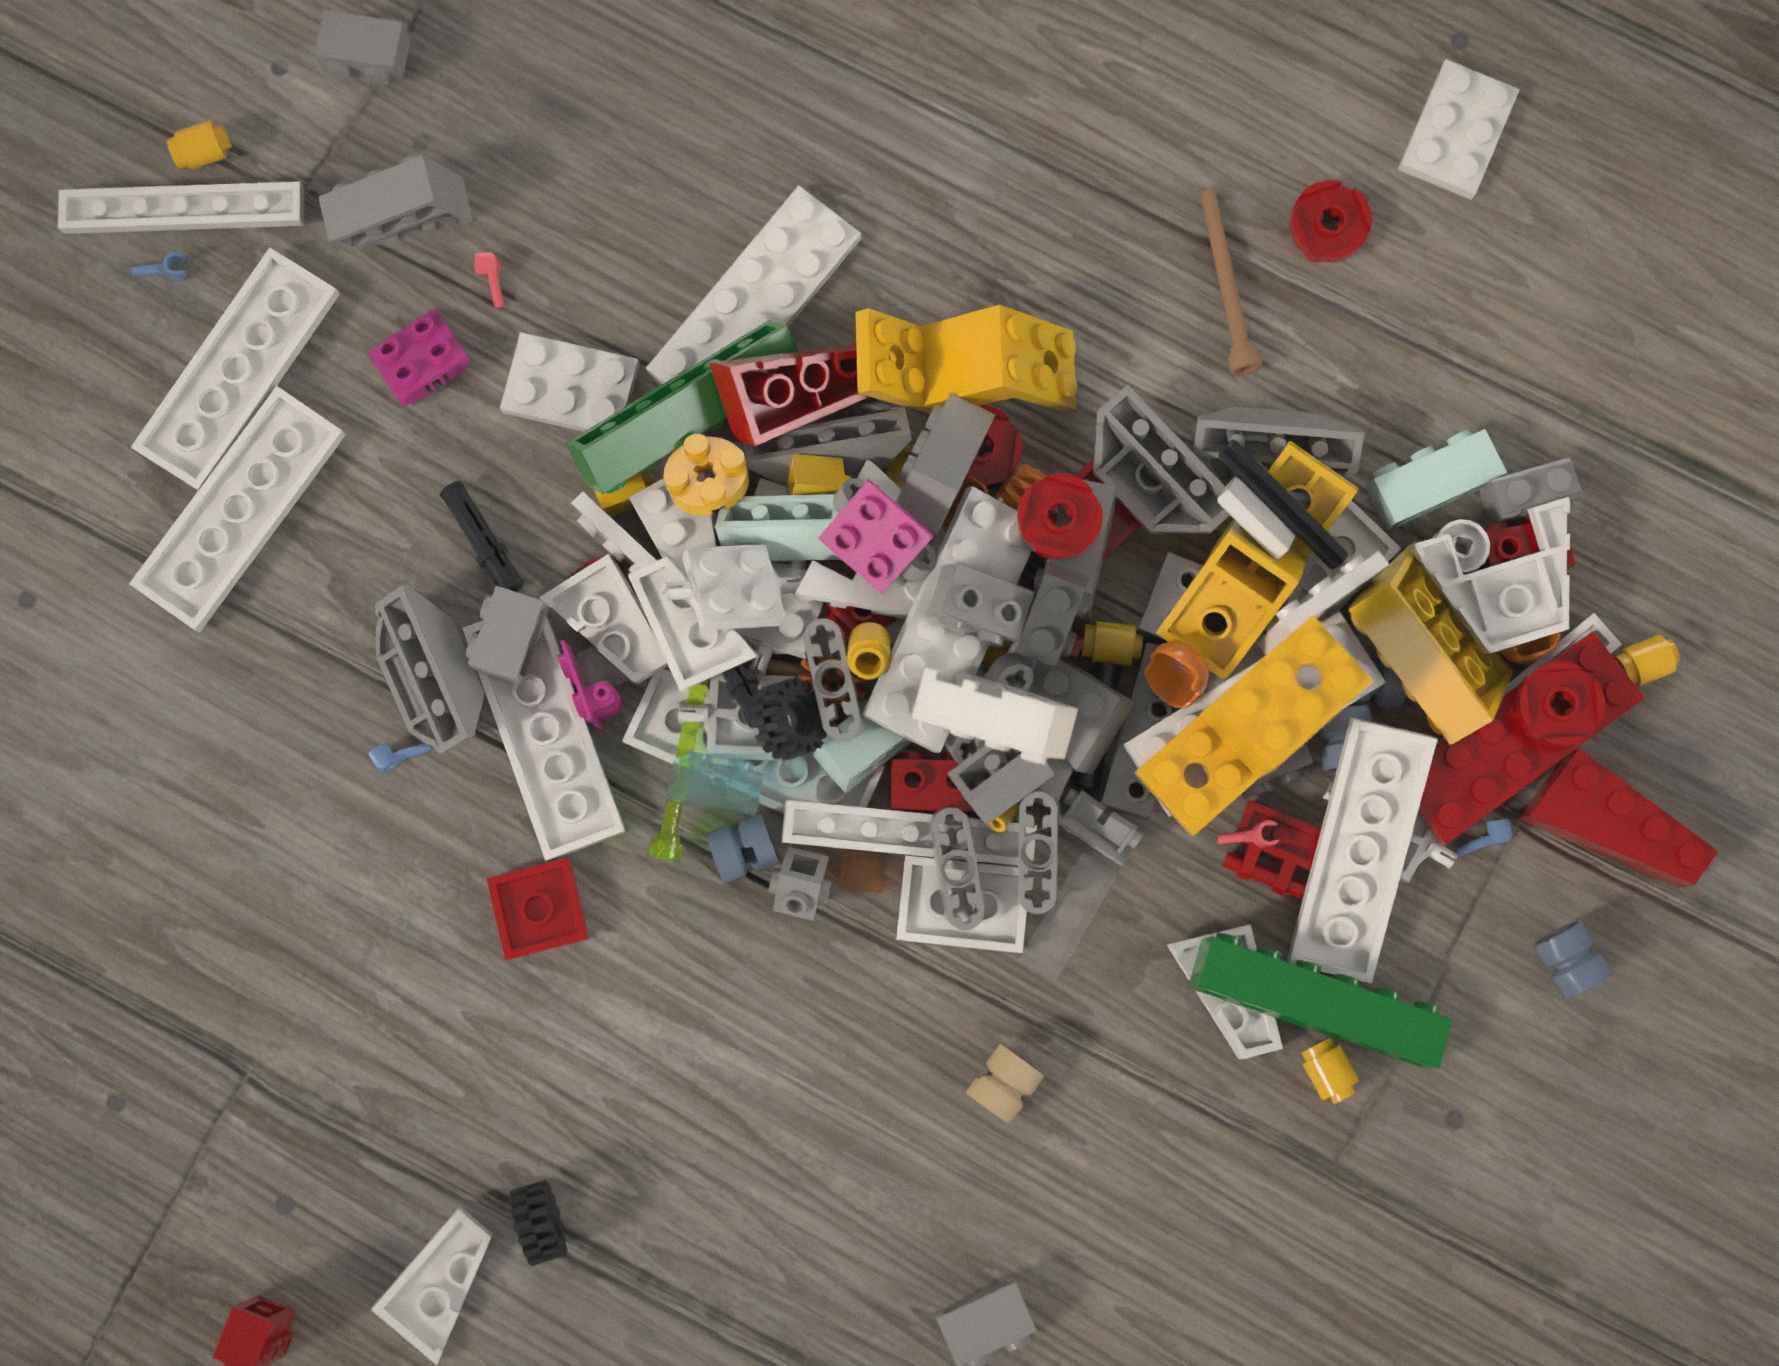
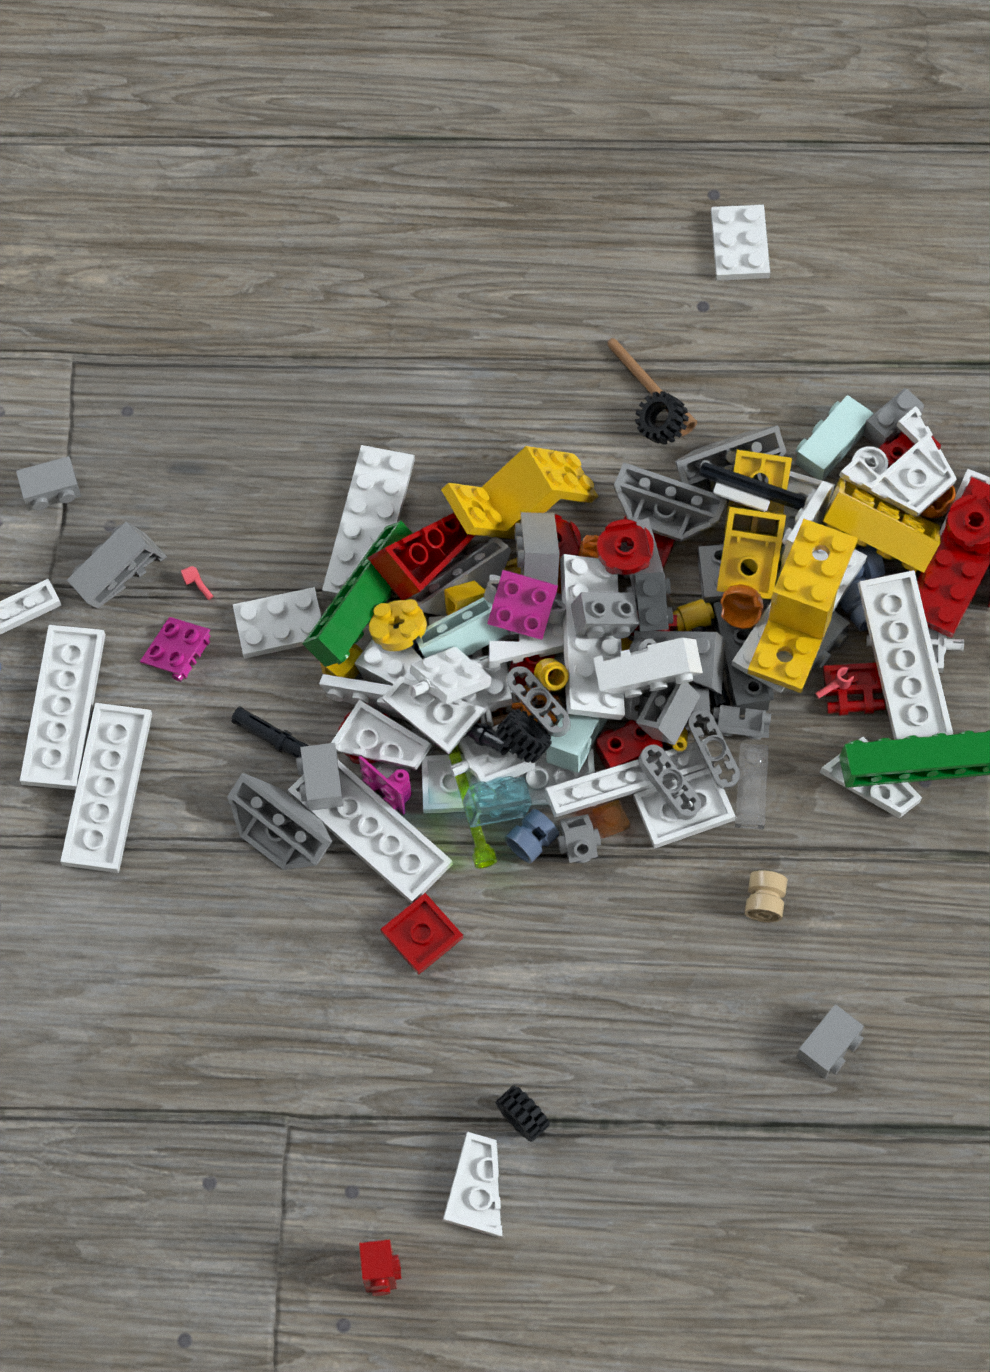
camera: 25 degrees left, 15 degrees down
(386, 759) = (277, 892): medium blue hand -> none
(1202, 326) = (671, 426): none -> black tyre
(1330, 1071) = (956, 797): yellow brick -> none
(1339, 201) = (692, 339): red plate -> none
(1498, 833) = (981, 619): medium blue hand -> none

